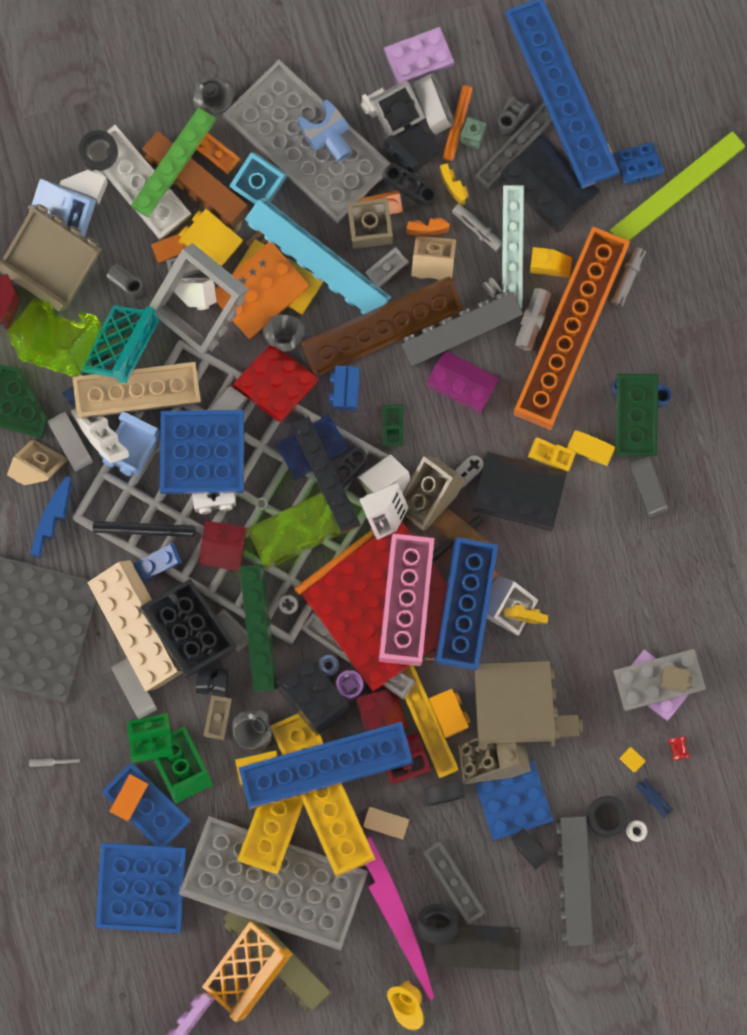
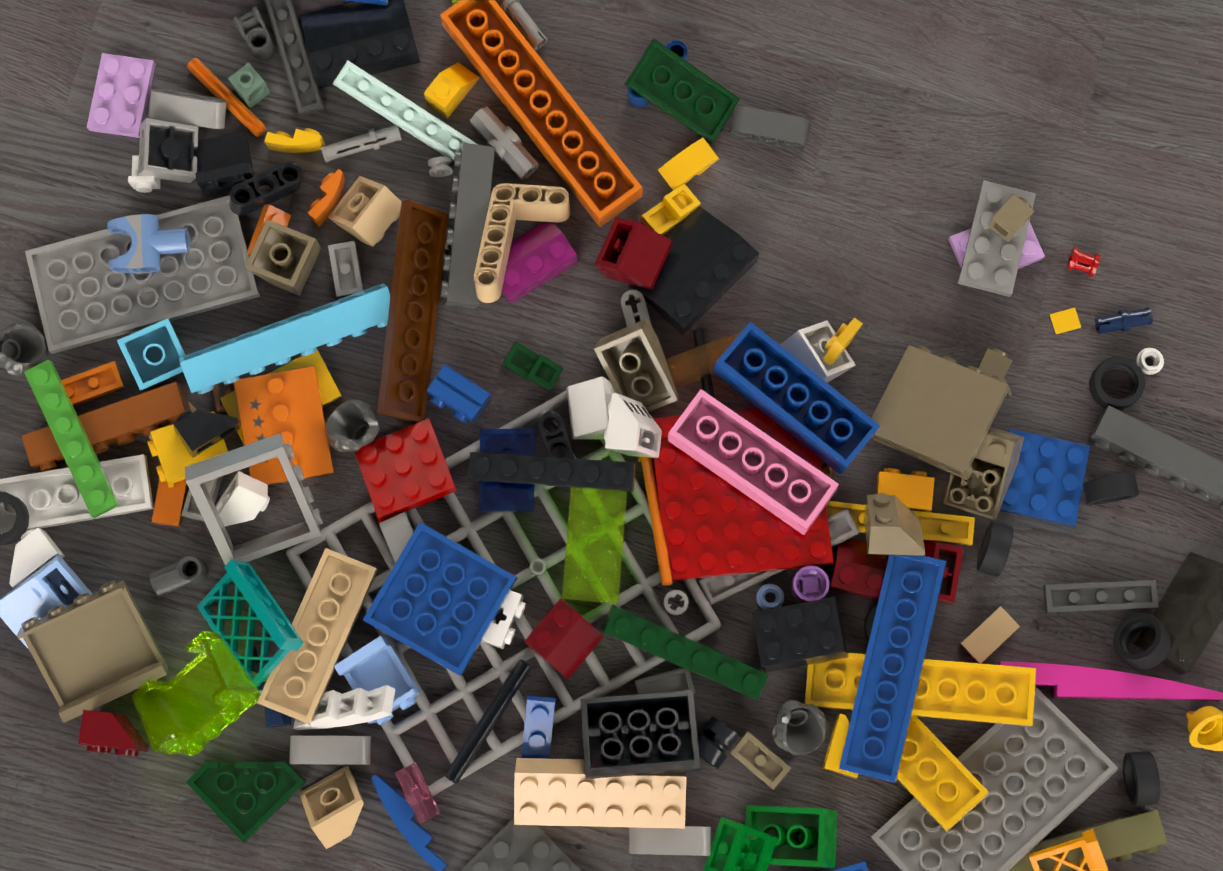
camera: 60 degrees left, 0 degrees up
(73, 510) = (417, 793): none -> clear pink plate
(226, 241) = (204, 429): none -> black slope
(345, 971) = (1141, 778): none -> black tyre
(417, 715) = (891, 527): none -> dark tan slope
(484, 349) = (506, 206): none -> tan beam
(505, 445) = (633, 253): none -> dark red slope

